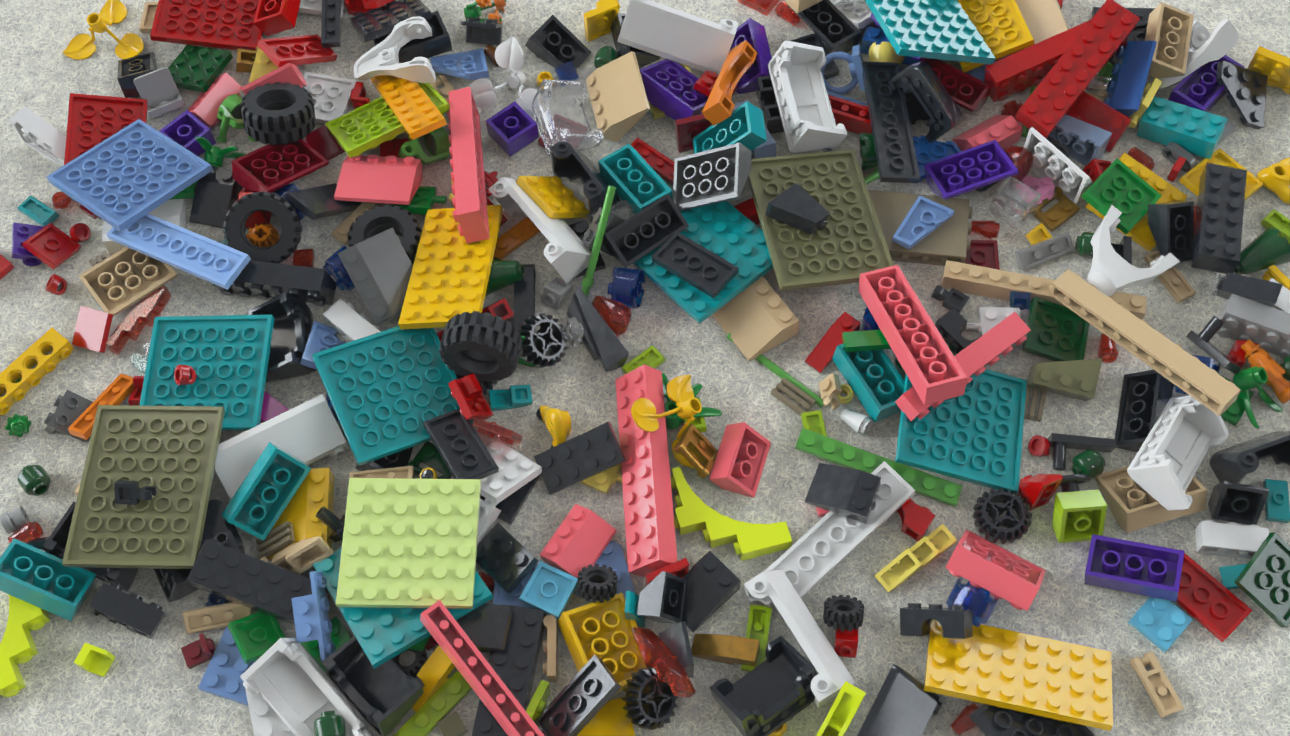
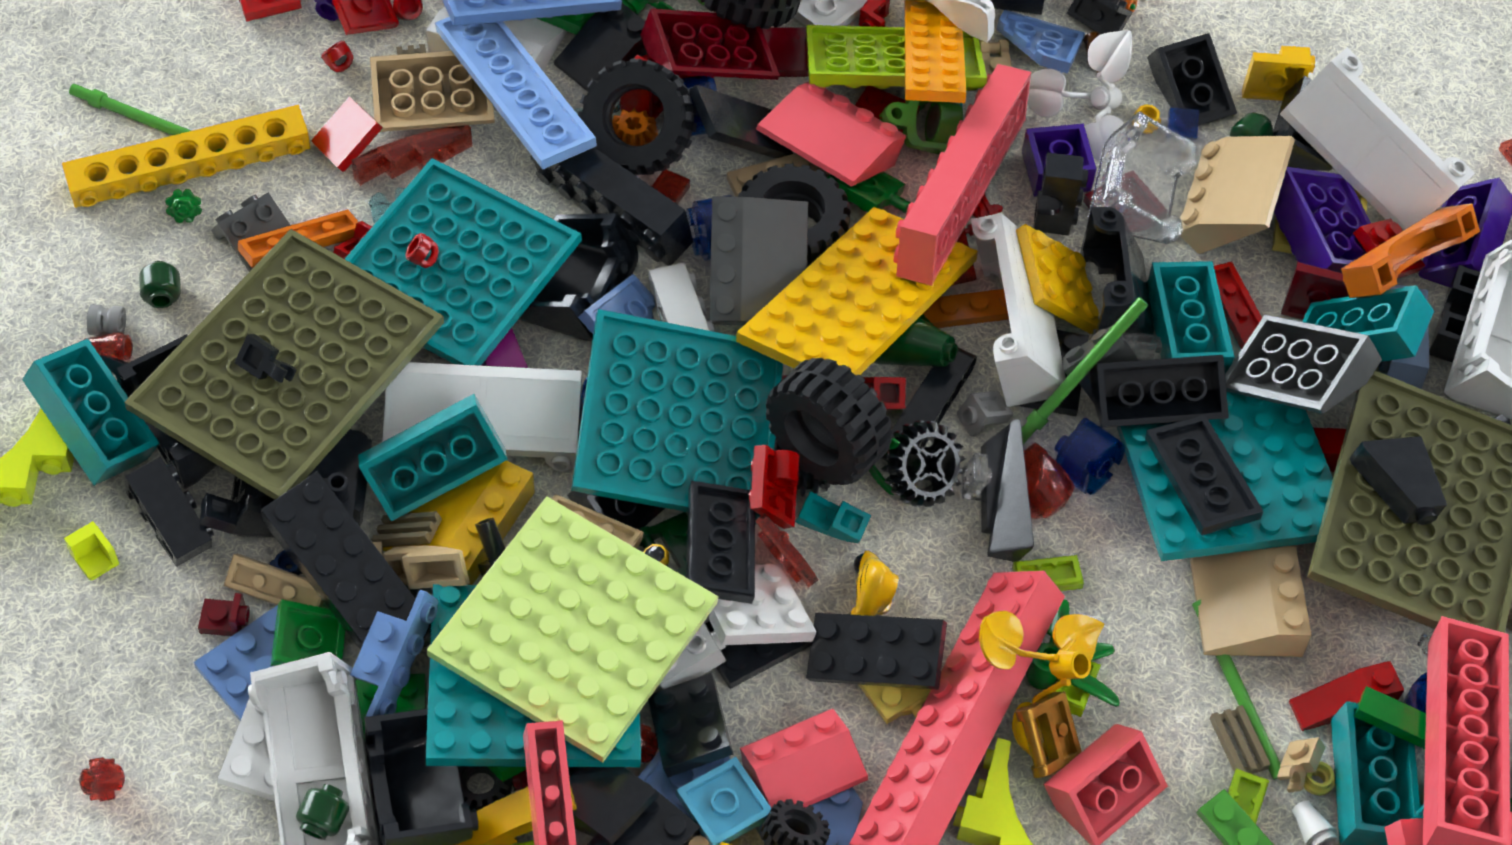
camera: 25 degrees right, 5 degrees down
(159, 594) = (219, 513): none -> black plate
(527, 147) = (1060, 193): none -> black arch

